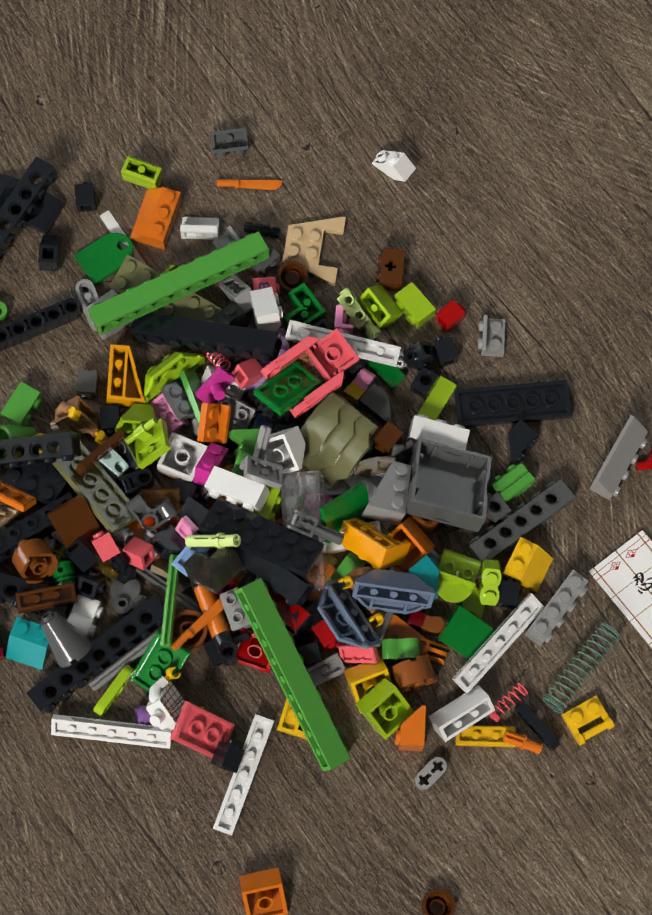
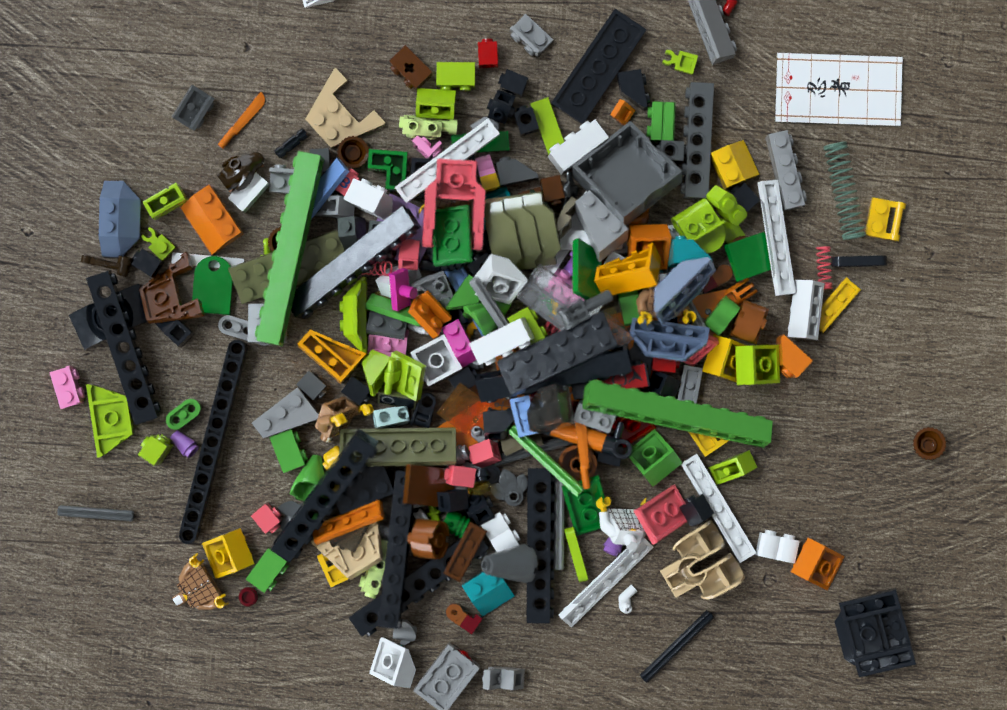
camera: 50 degrees left, 15 degrees up
(52, 382) = (286, 414): none -> light grey wedge
(67, 181) = (122, 265): none -> dark brown brick
(69, 224) = (162, 296): none -> reddish brown wing
(100, 152) = (118, 218): none -> sand blue wedge
(100, 452) = (383, 423): reddish brown tile -> none
(102, 834) = (676, 646): none -> black axle
(107, 197) = (160, 245): none -> lime plate
(108, 760) = (625, 599): none -> white arm
(161, 511) = (469, 411): dark grey piece -> none
(183, 814) = (712, 580): none -> tan piece
(186, 527) = (499, 403): bright pink tile -> none
(210, 208) = (240, 170): none -> dark brown animal
(219, 540) = (536, 389): yellowish green pin -> none
(242, 689) = (654, 458): none -> bright green slope
(250, 849) = (777, 547): none -> white brick
(251, 274) = (329, 182): none -> medium blue tile
(262, 471) = (507, 311): light grey bracket -> none
(287, 759) = (733, 467): none -> lime slope
(427, 770) = (834, 370): light grey beam -> none
(494, 448) = (622, 112): none -> orange plate
(522, 742) = (863, 281): orange axle -> none
(571, 463) = (683, 63): none -> lime plate

